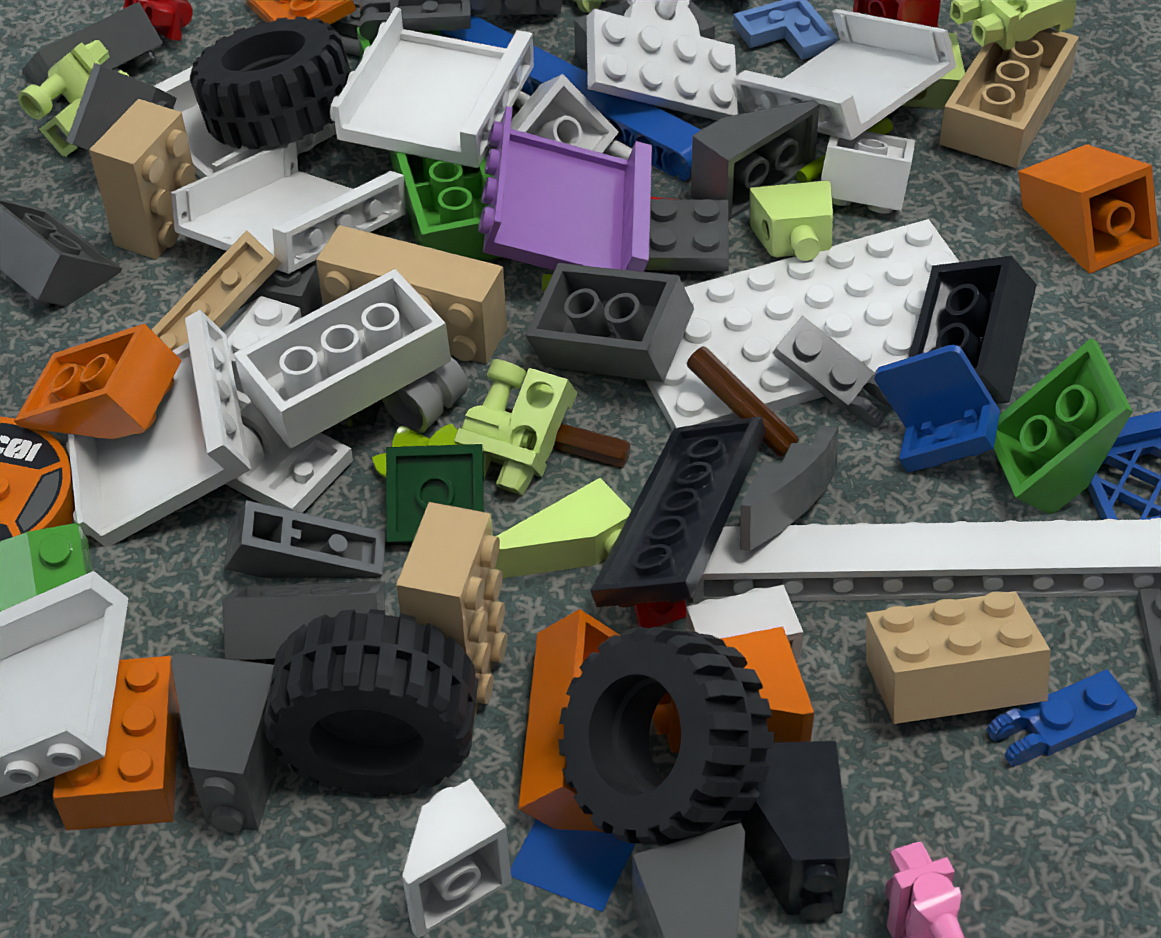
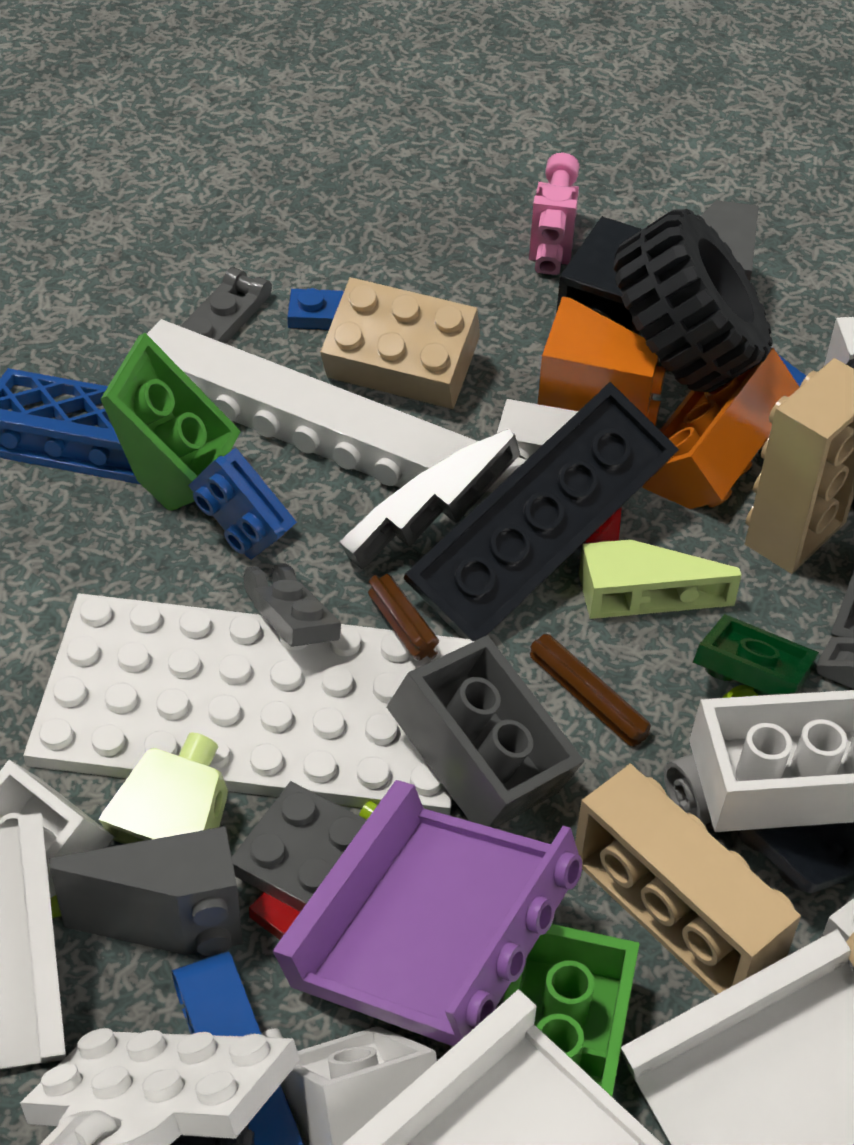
camera: 155 degrees left, 0 degrees up
(525, 436) = (639, 683): yellowish green hips -> none
(982, 311) = (132, 571): black slope -> none

